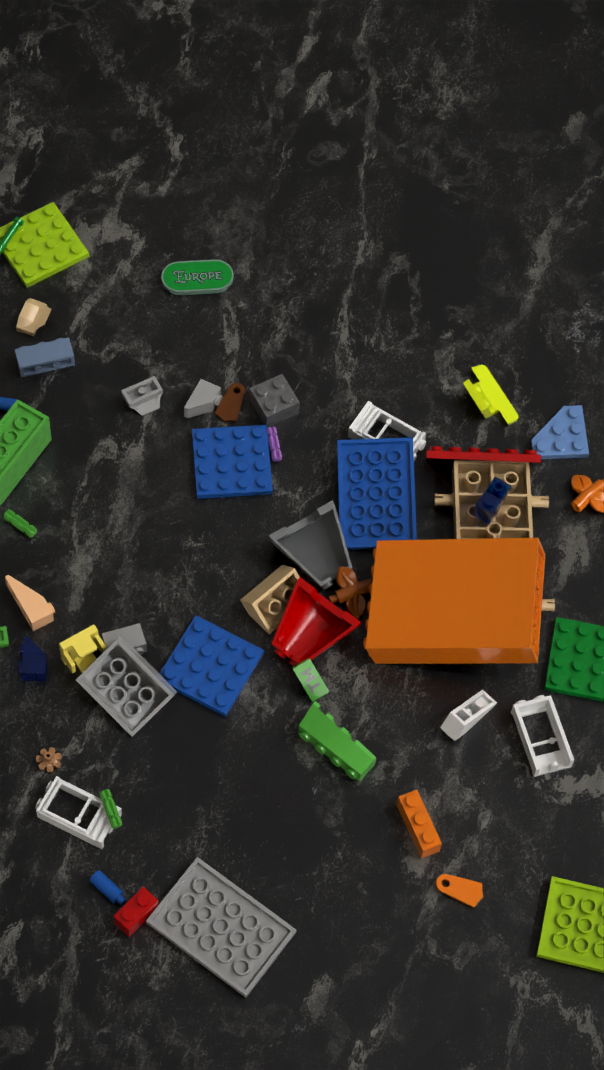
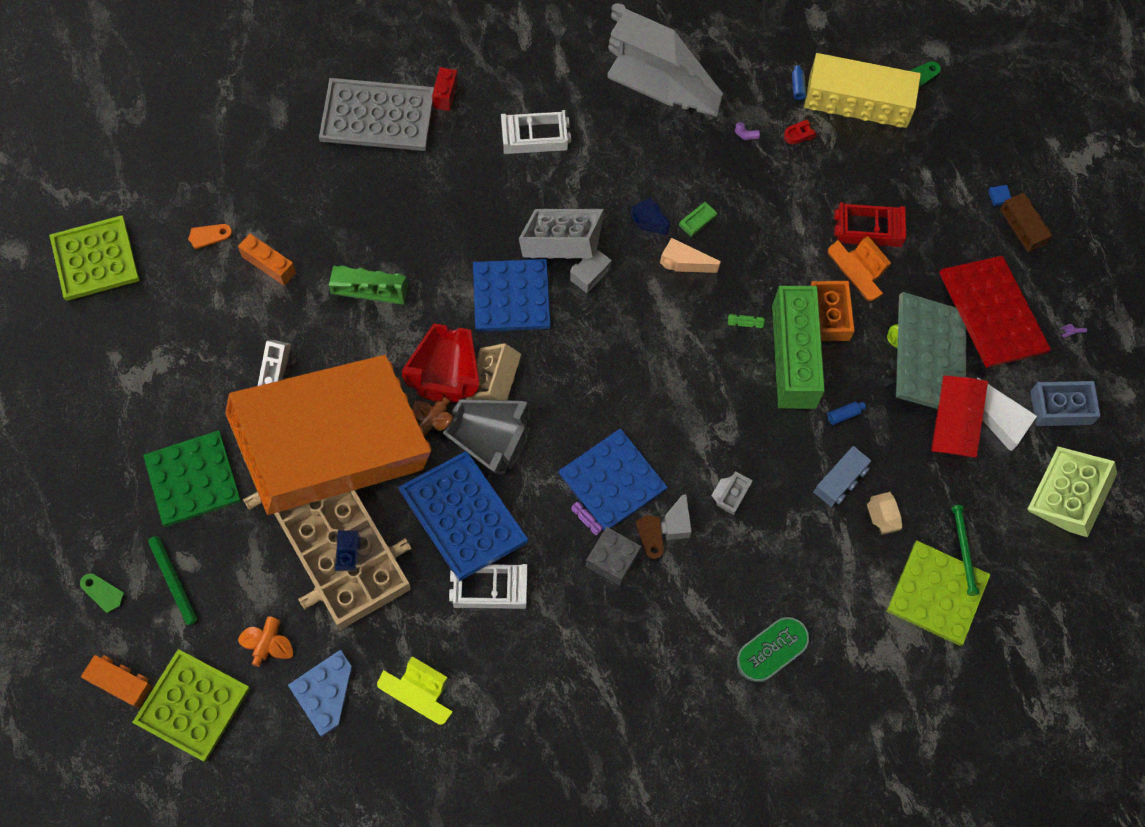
camera: 150 degrees right, 5 degrees up
(48, 760) = (585, 159): medium nougat plant -> none
(81, 648) = (618, 238): light yellow panel -> none
(108, 888) = (477, 96): blue cylinder -> none
(110, 808) = (509, 135): bright green axle -> none
(310, 679) = (420, 320): bright green tile -> none
(490, 454) = (385, 609): red plate -> none
(551, 761) = (186, 371): white door -> none

